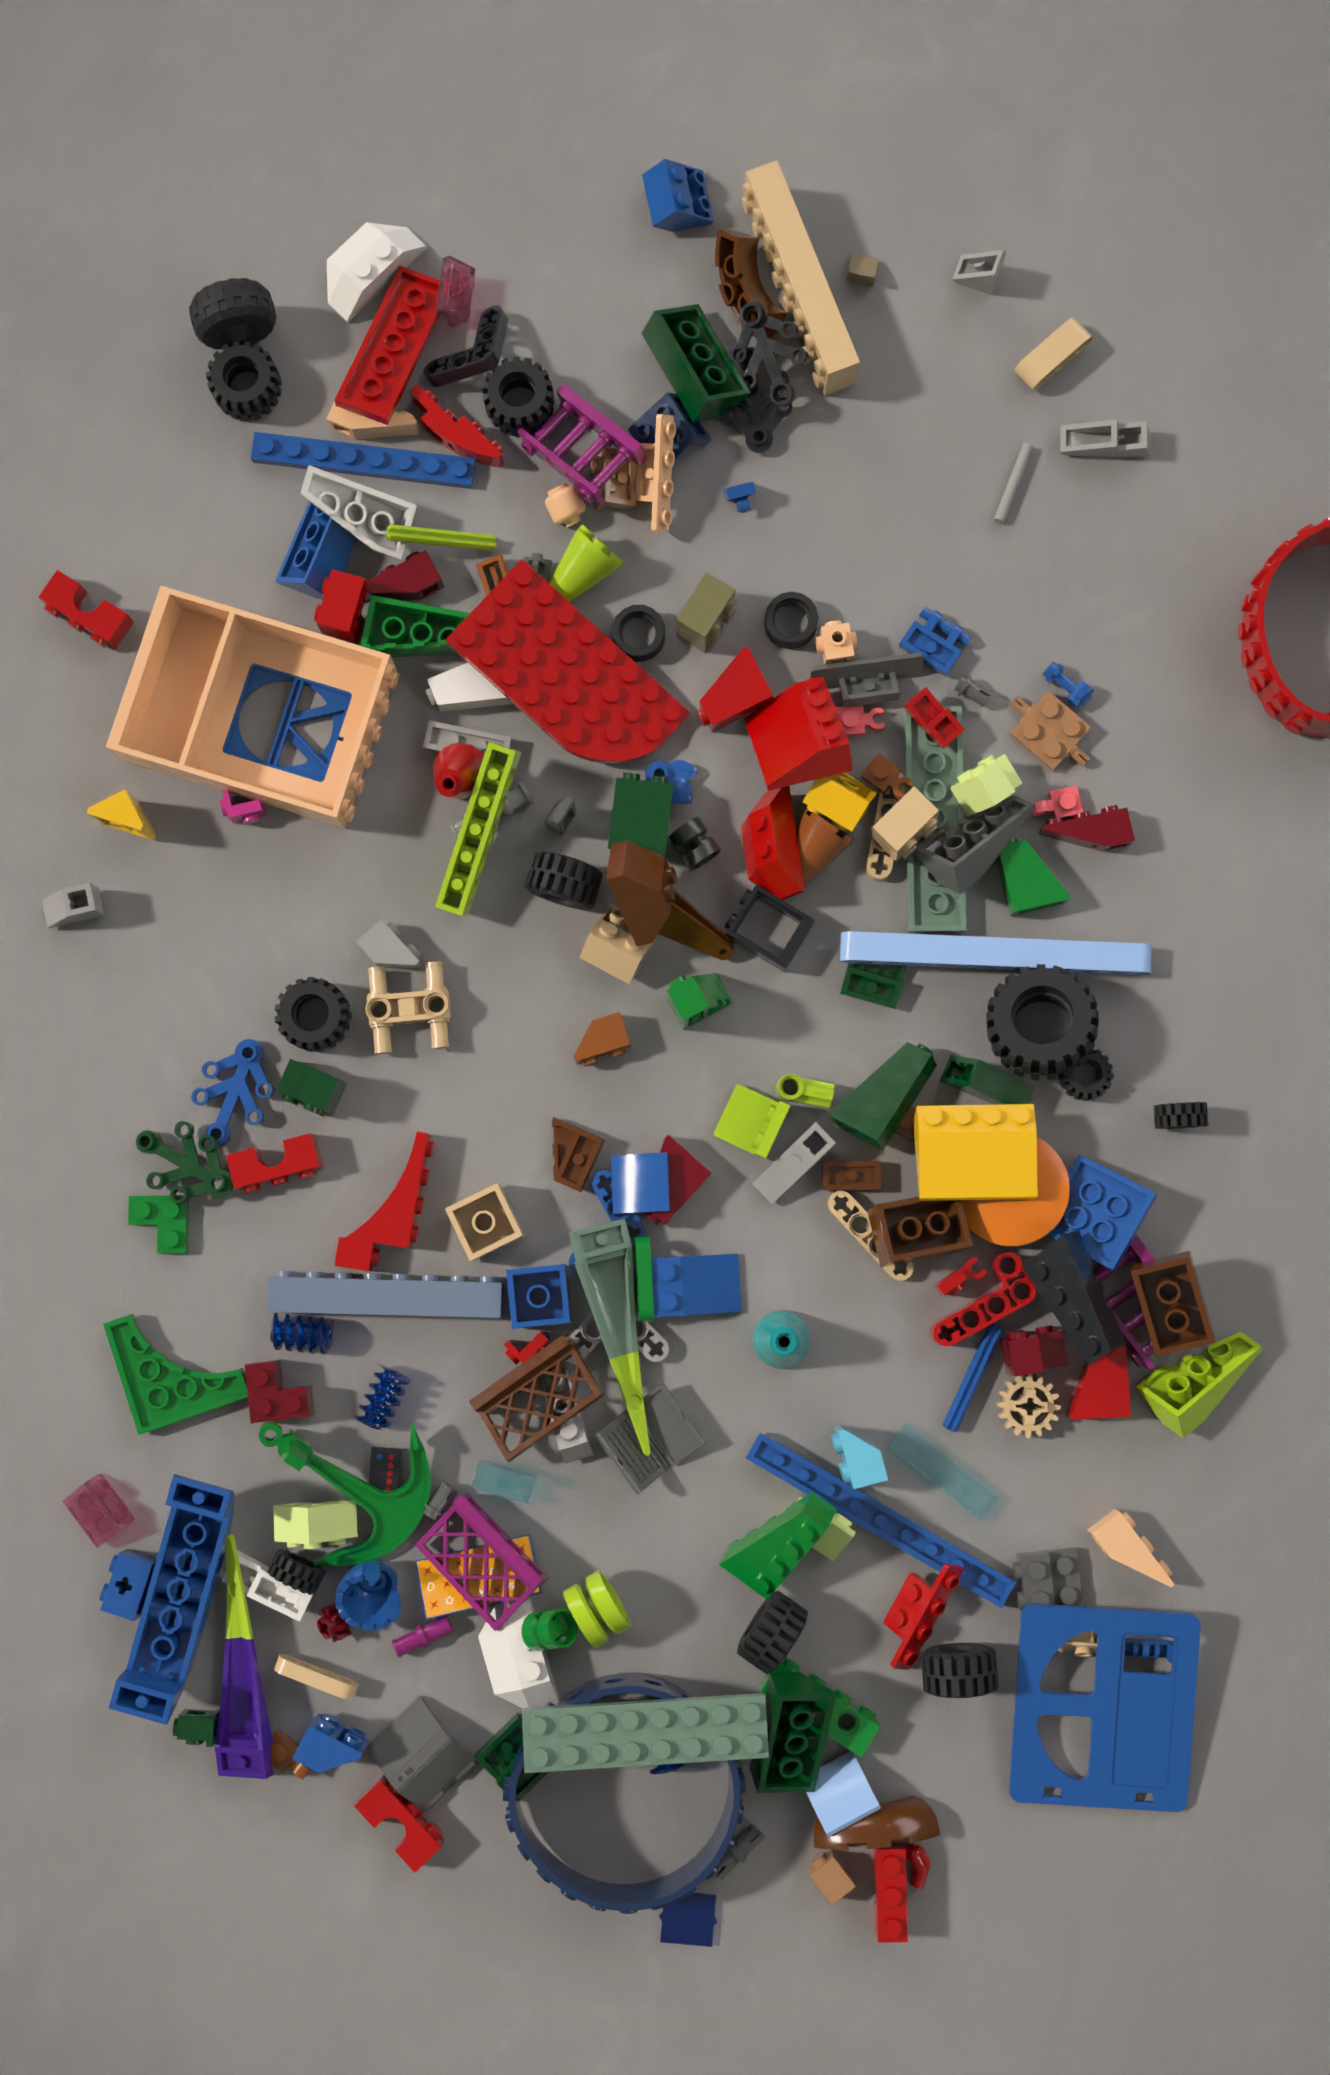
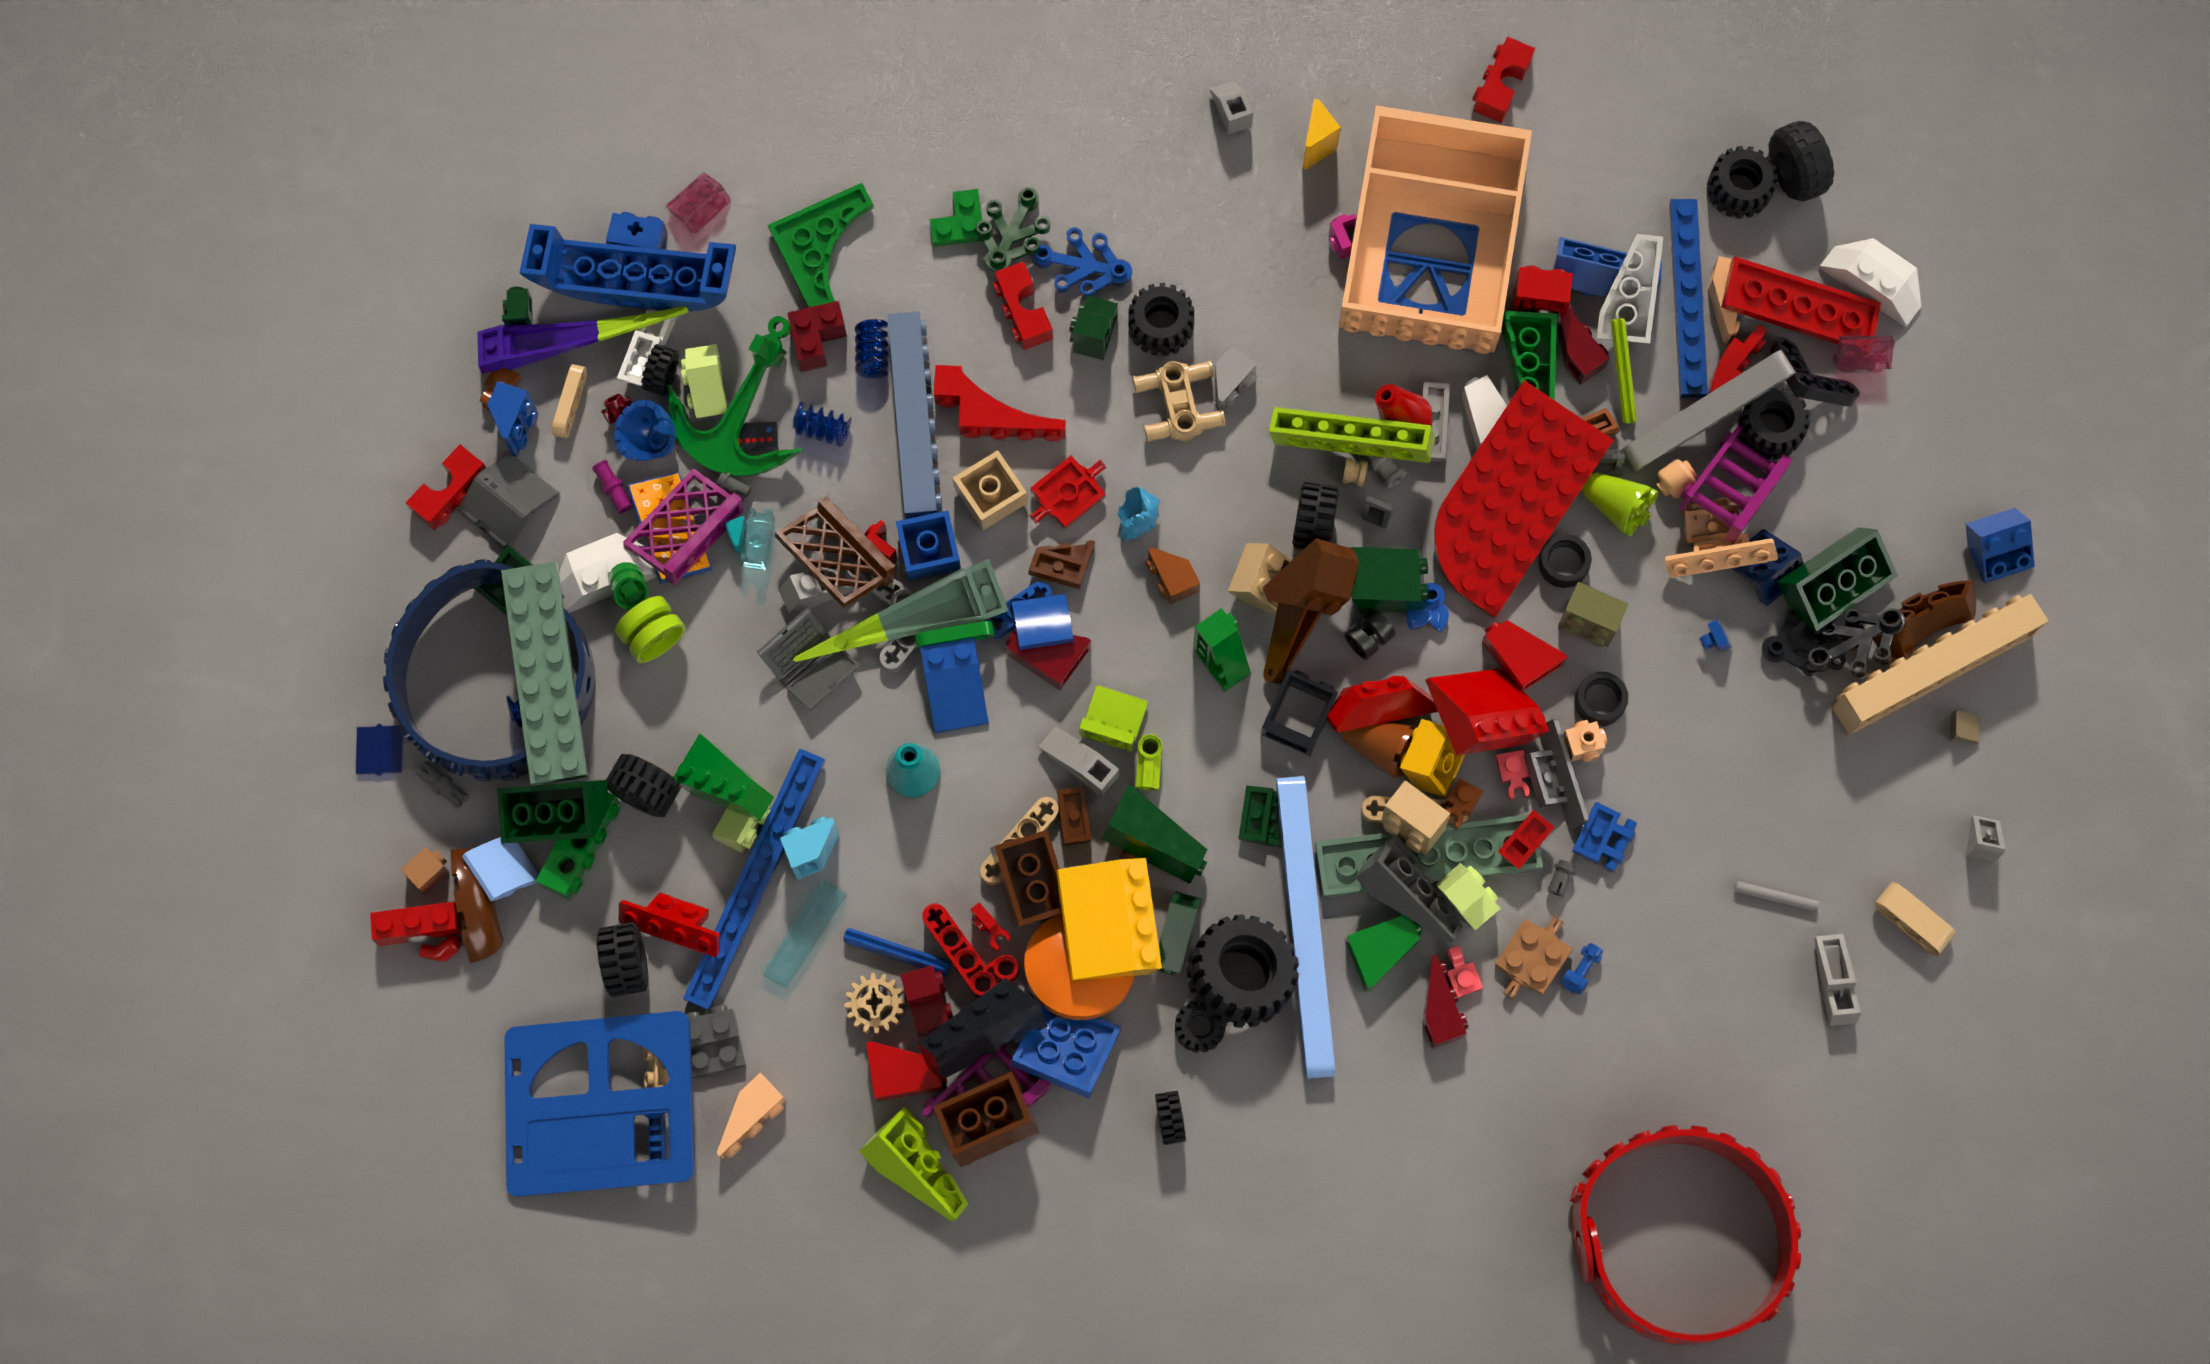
camera: 80 degrees right, 10 degrees down
(494, 1139) = (1068, 492): none -> red plate
(495, 1504) = (736, 531): none -> teal slope
(501, 457) = (1708, 411): none -> light grey beam
(513, 833) = (1355, 472): none -> tan wheel
(531, 1067) = (1138, 513): none -> dark azure hair

